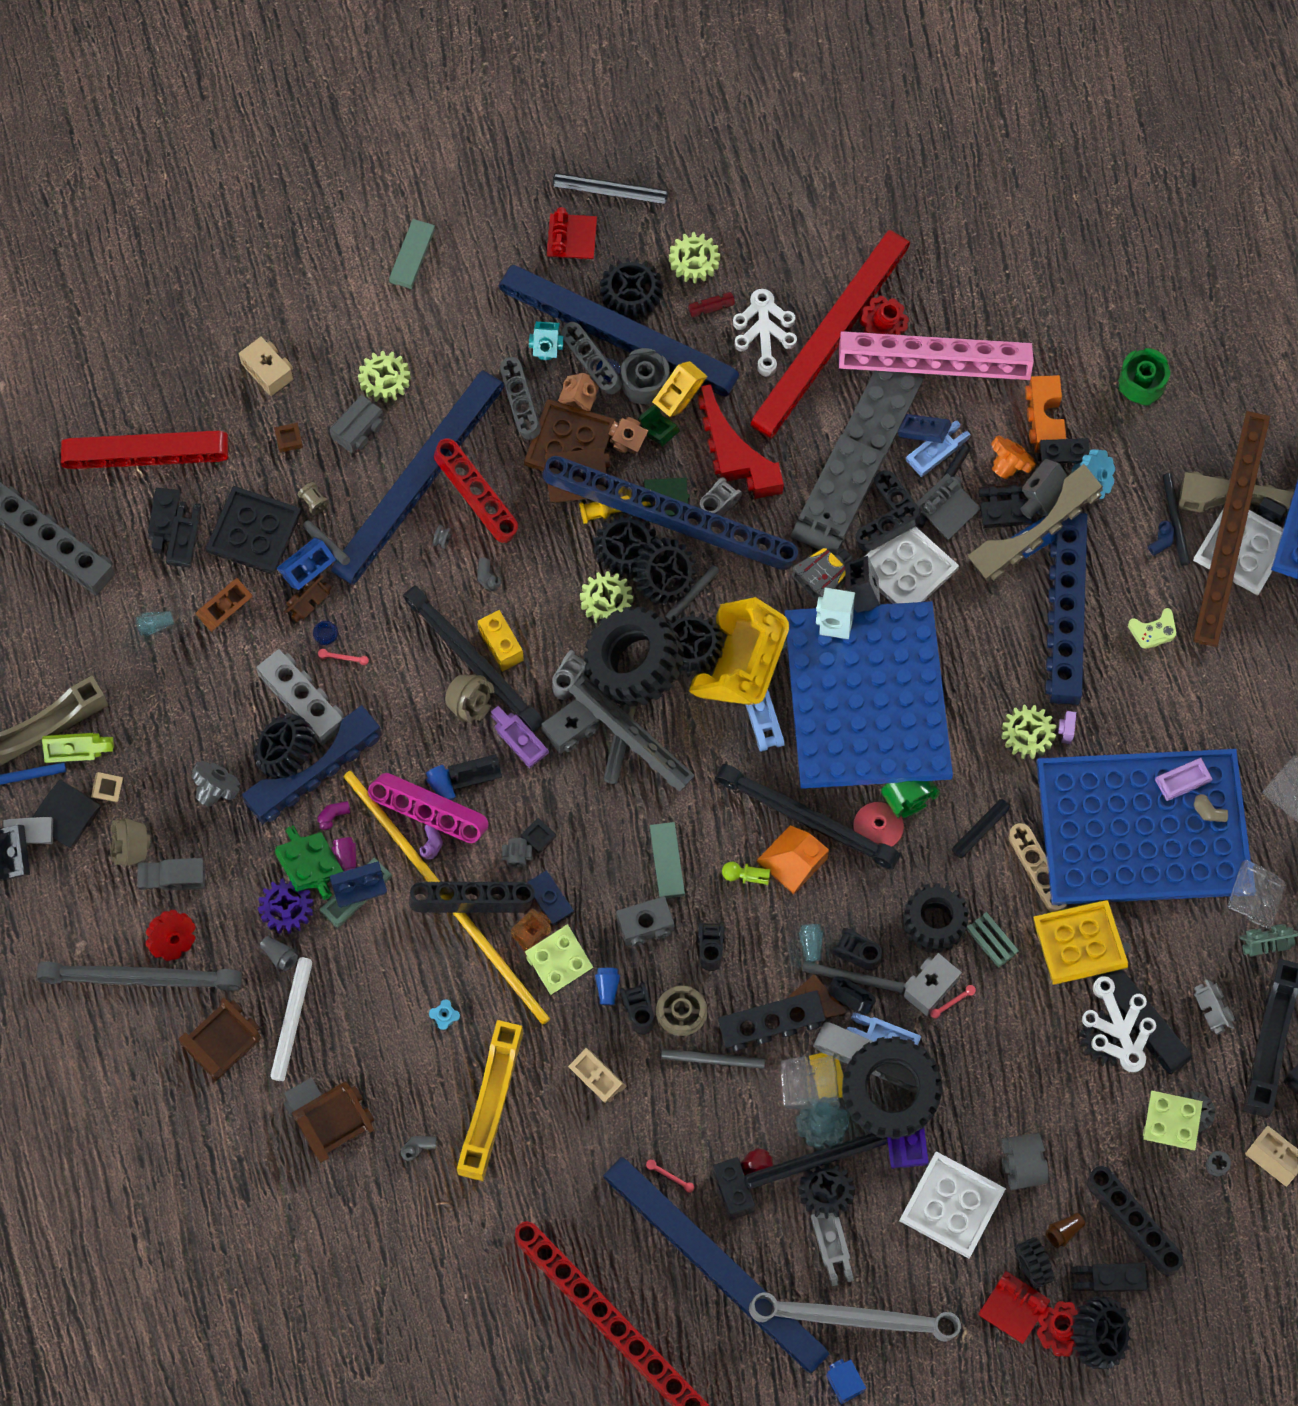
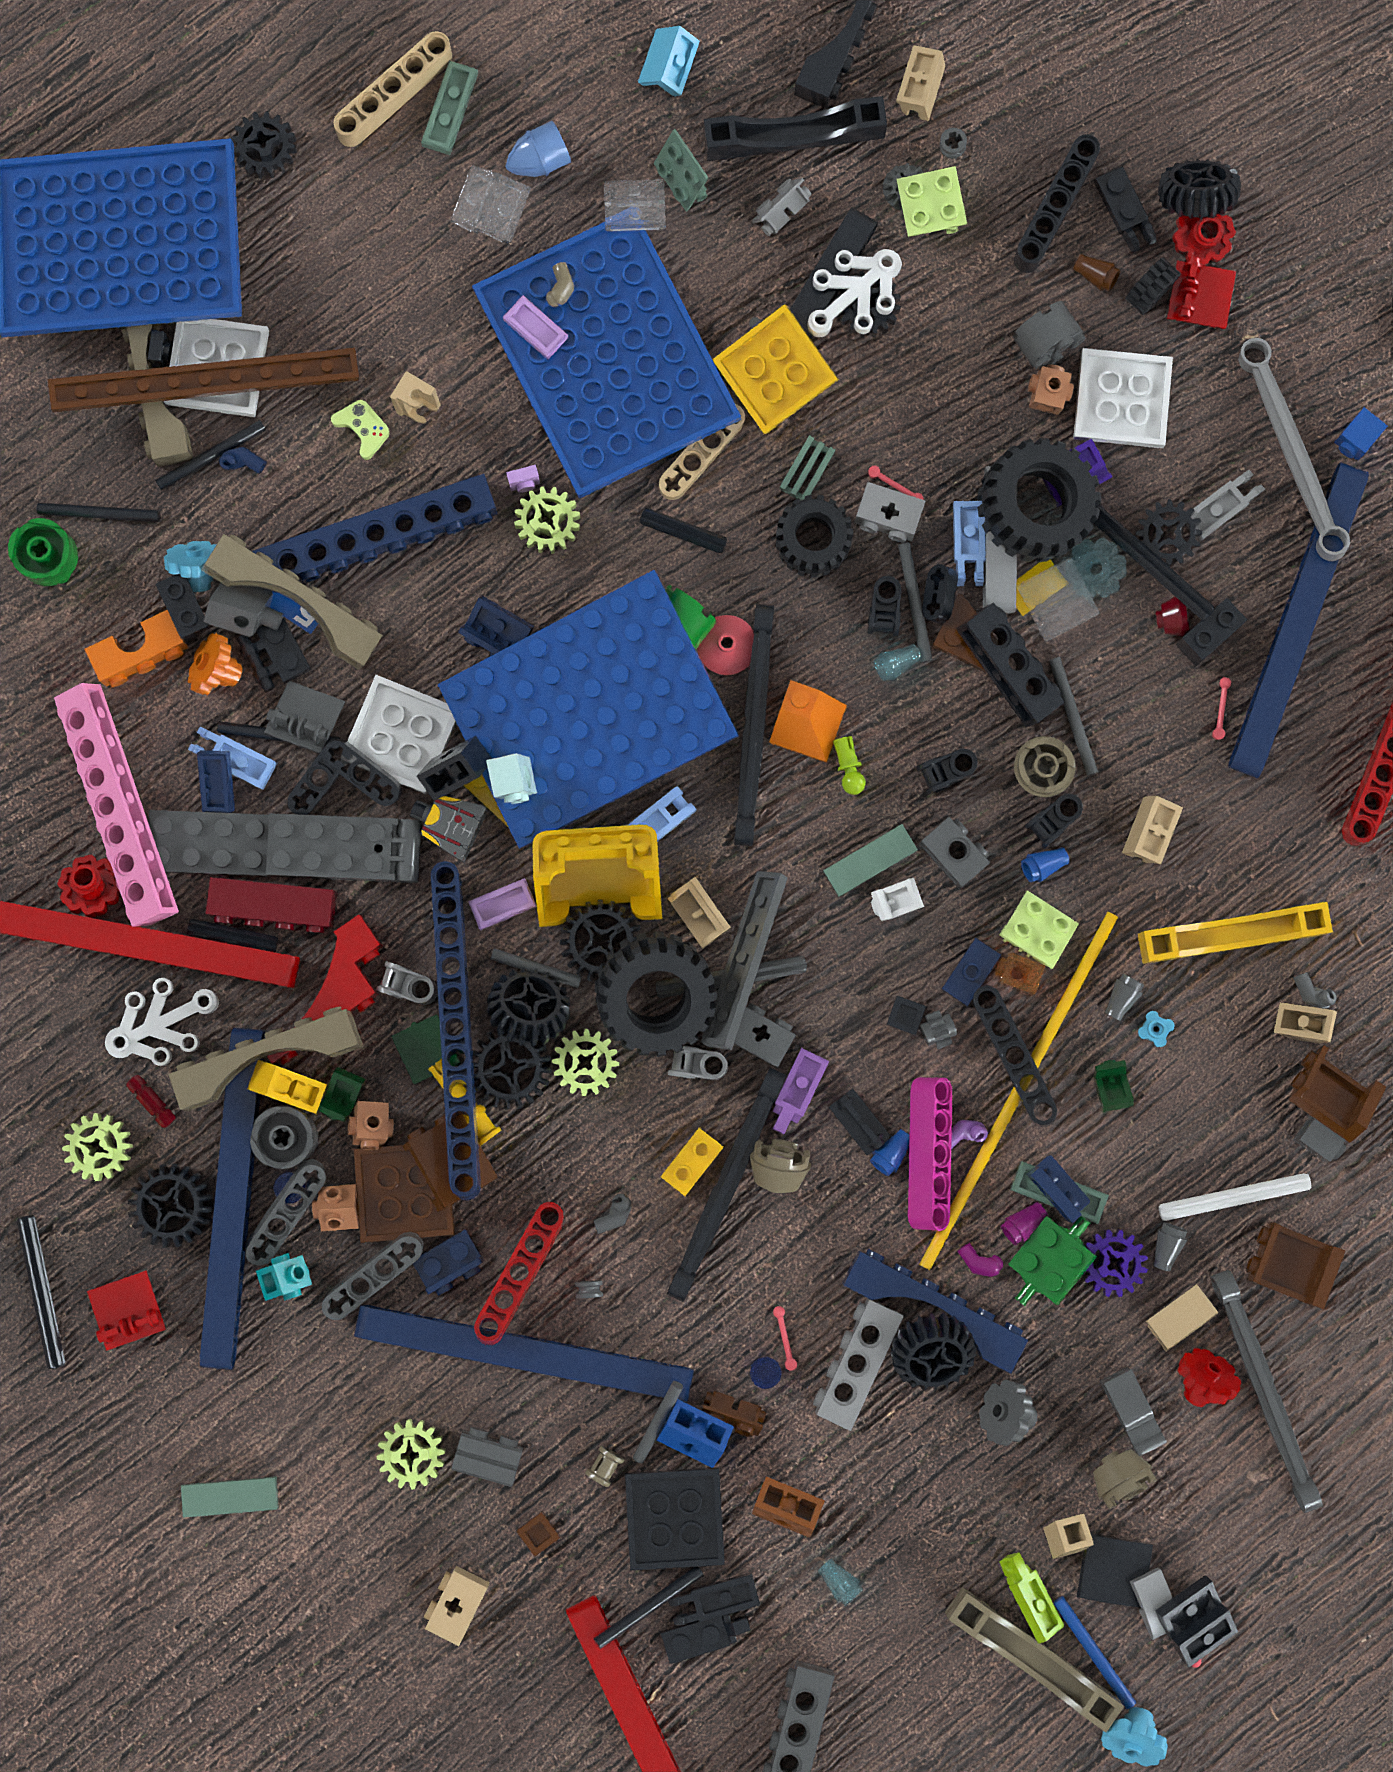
camera: 115 degrees left, 15 degrees up
(202, 486) = (648, 1607): none -> black bar
(221, 938) = (1181, 1317): none -> tan hinge
(397, 1119) = (1305, 1023): none -> tan slope
(416, 962) = (1113, 1085): none -> dark green bracket
(480, 1001) = (1123, 996): none -> dark grey cone
(507, 453) = (447, 1262): none -> dark blue bracket
(628, 862) = (896, 900): none -> white bracket
(682, 722) = (699, 913): none -> tan hinge
(707, 338) = (205, 1081): none -> dark tan arch
(749, 582) = (502, 904): none -> lavender tile
(806, 400) = (232, 935): none -> black axle
(818, 432) = (271, 903): none -> dark red brick
(960, 660) = (493, 627): none -> dark blue bracket
(979, 1138) = (1050, 389): none -> nougat brick
(1162, 427) = (98, 512): none -> black bar
(1163, 669) = (413, 394): none -> tan hinge

